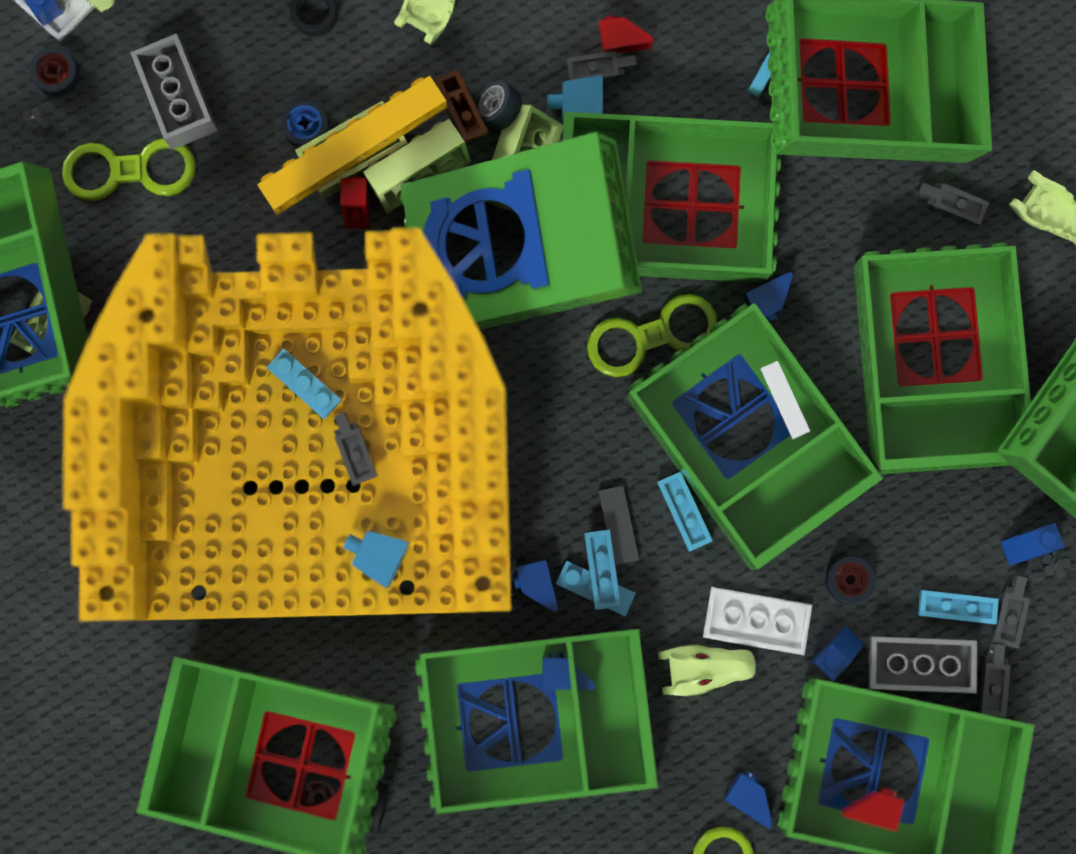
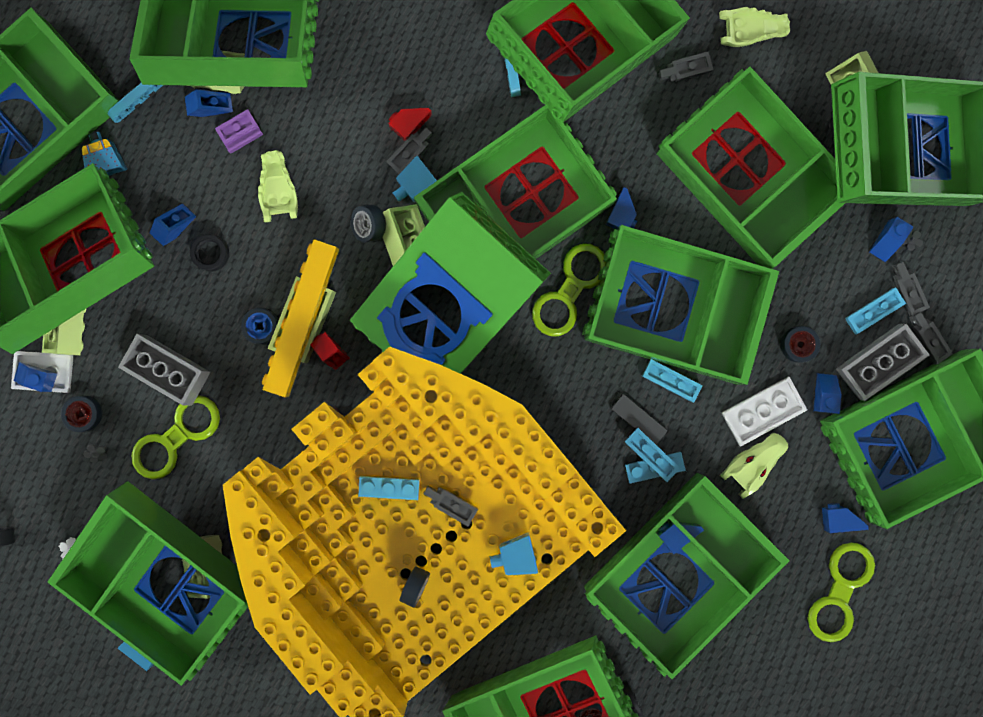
camera: 40 degrees left, 5 degrees up
(249, 502) = (414, 586): none -> black wheel
(425, 156) = (349, 294): yellowish green slope -> none
(461, 107) = (347, 242): reddish brown slope -> none
(536, 584) = (619, 493): blue slope -> none
(785, 399) = (684, 269): white sticker -> none
(876, 809) = (928, 473): red slope -> none

